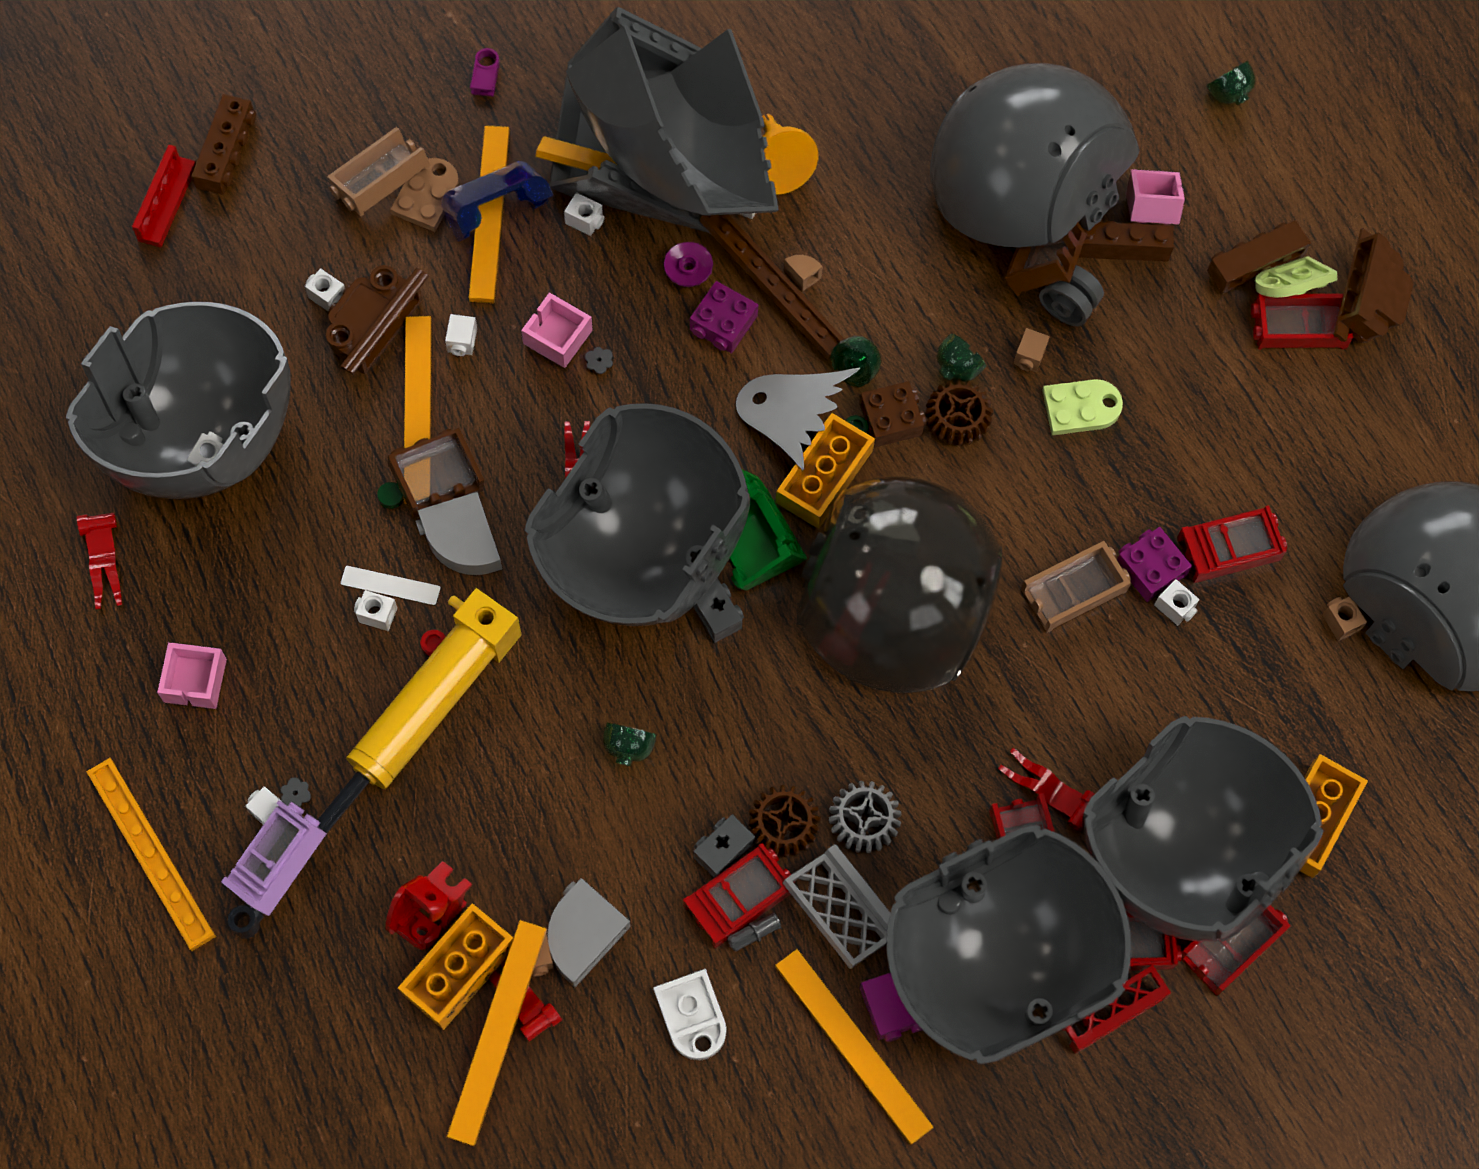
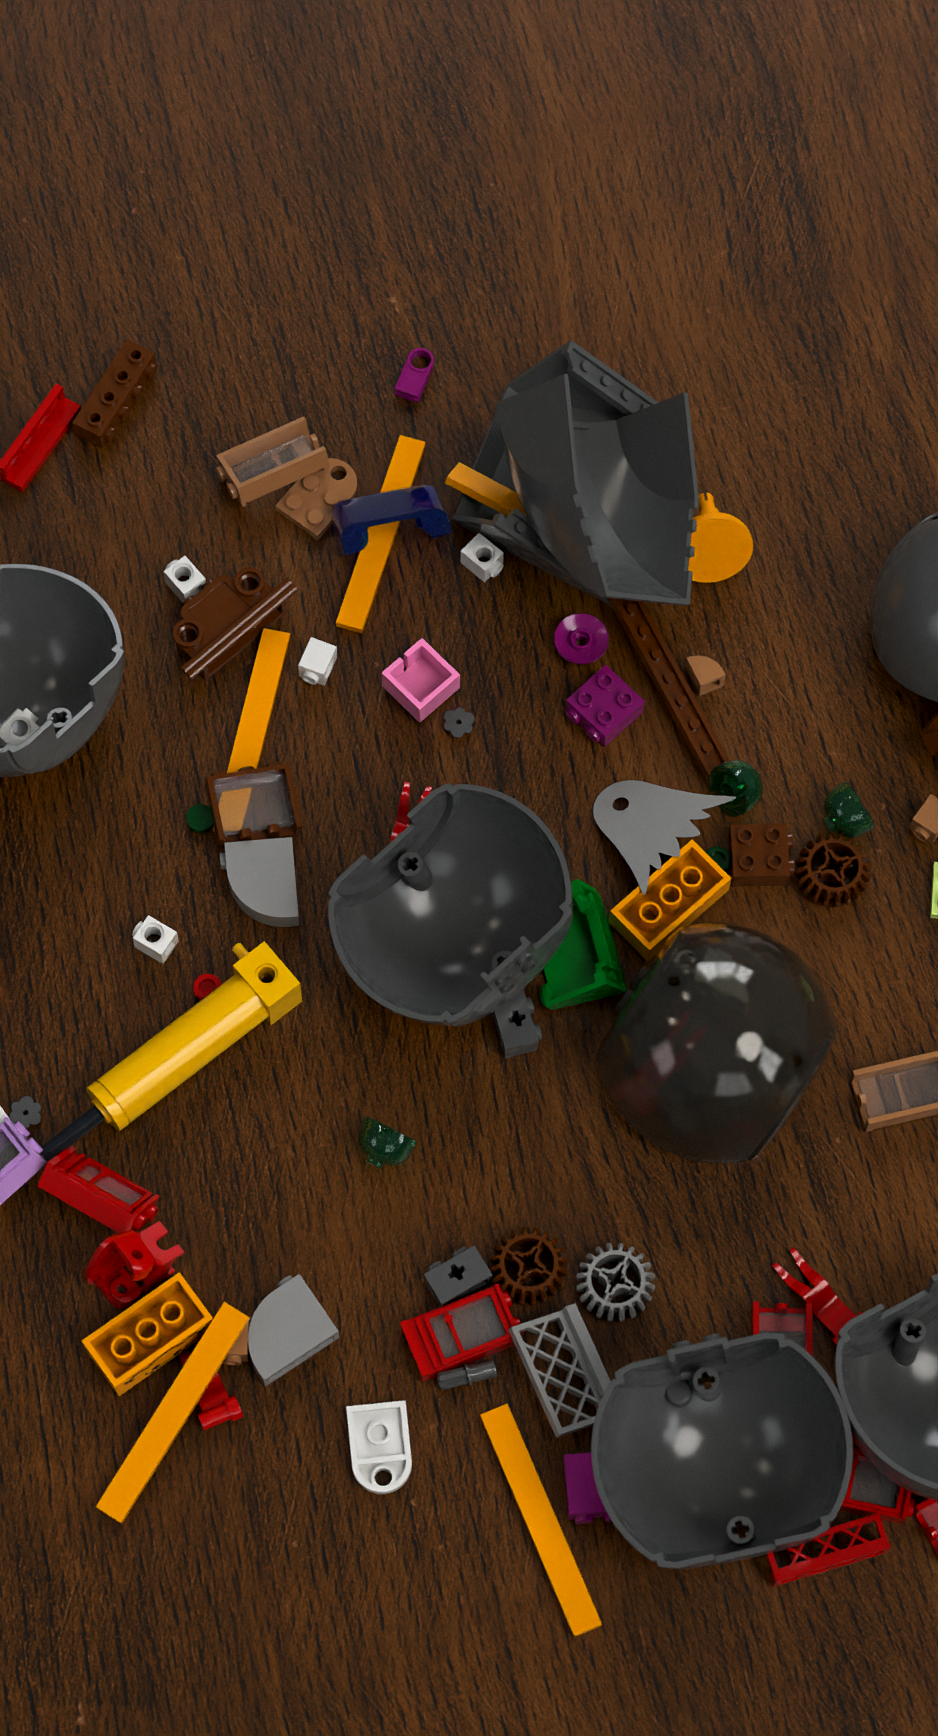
camera: 15 degrees right, 0 degrees up
(379, 848) = (98, 1191): none -> red door
(390, 585) = (177, 915): white sticker -> none

